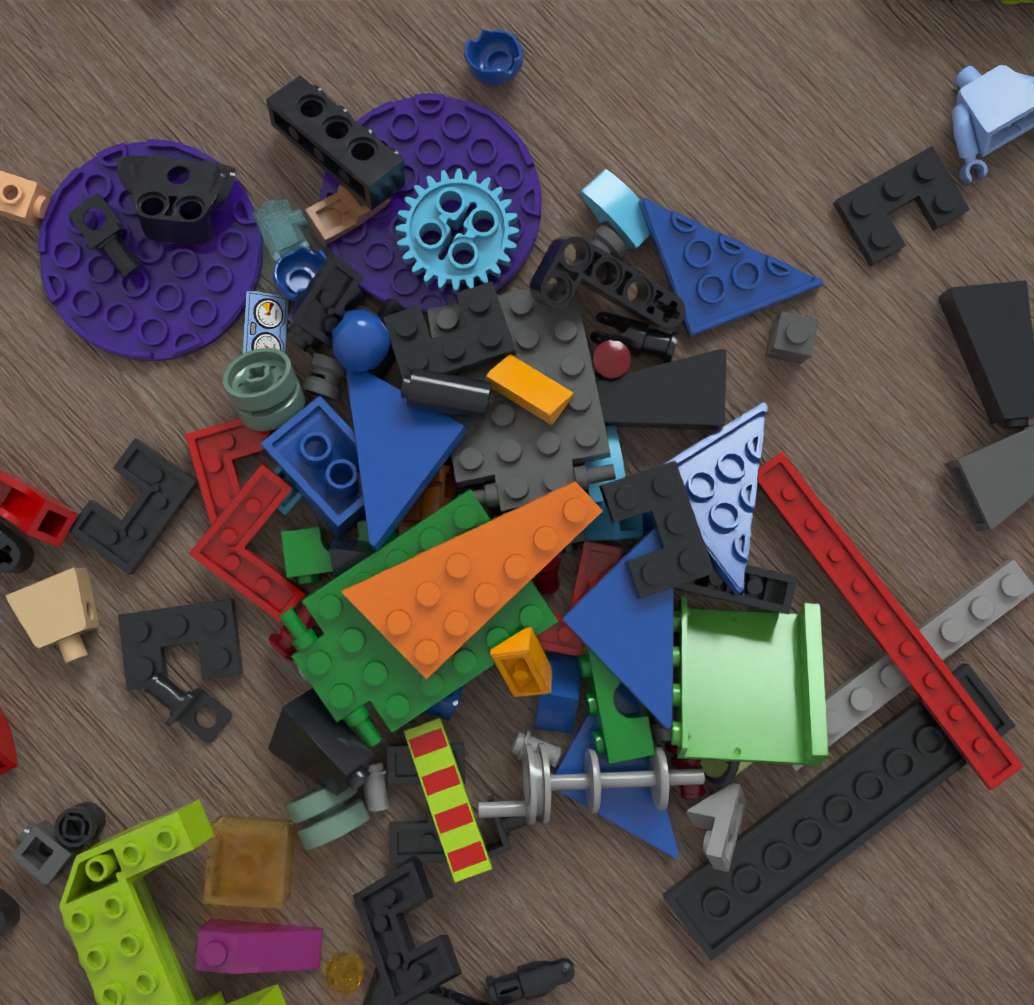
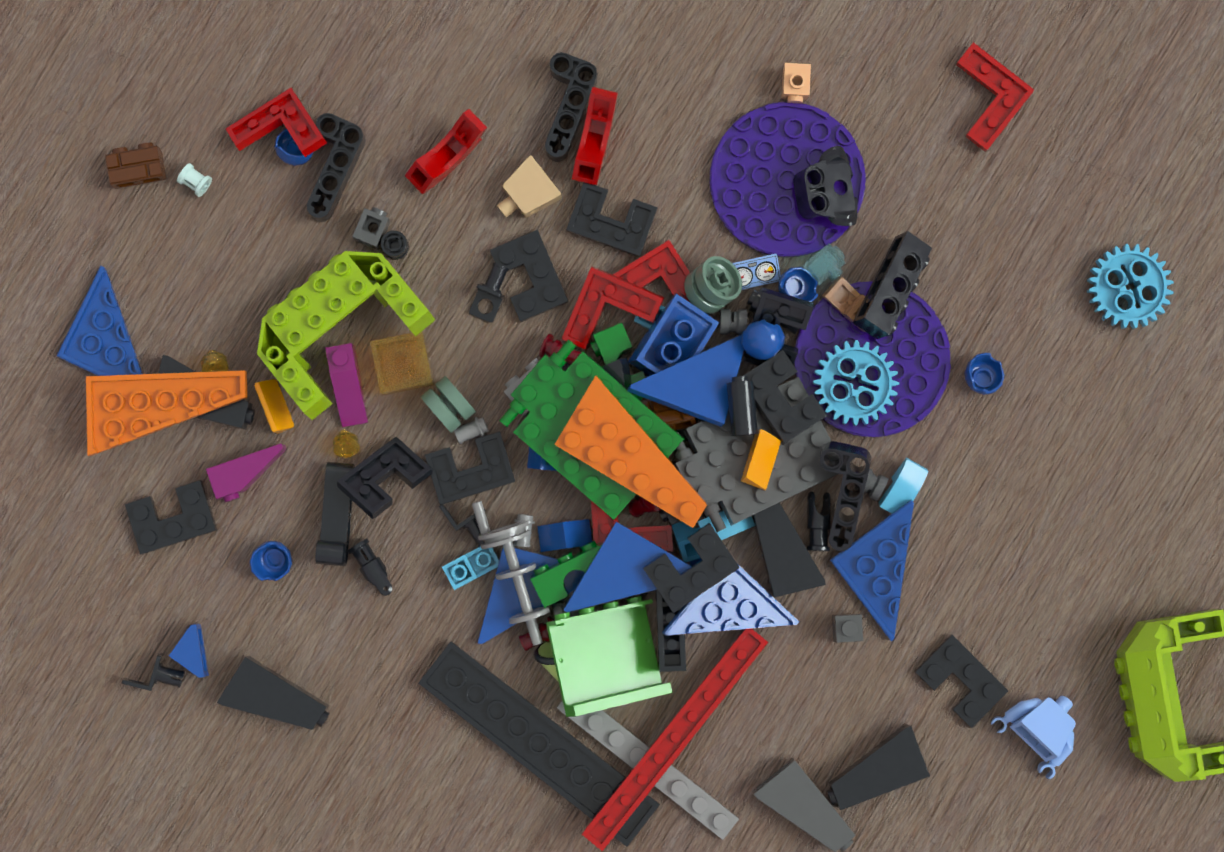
camera: 70 degrees right, 0 degrees up
(108, 238) = (786, 151): black bracket -> none
(320, 746) = (491, 387): black slope -> none
(448, 800) = (477, 480): tile -> none
(523, 664) = (579, 505): light orange slope -> none
(567, 840) = (470, 566): none -> medium azure slope
(611, 359) = (796, 509): dark red pin -> none
(722, 818) = (511, 665): light grey slope -> none

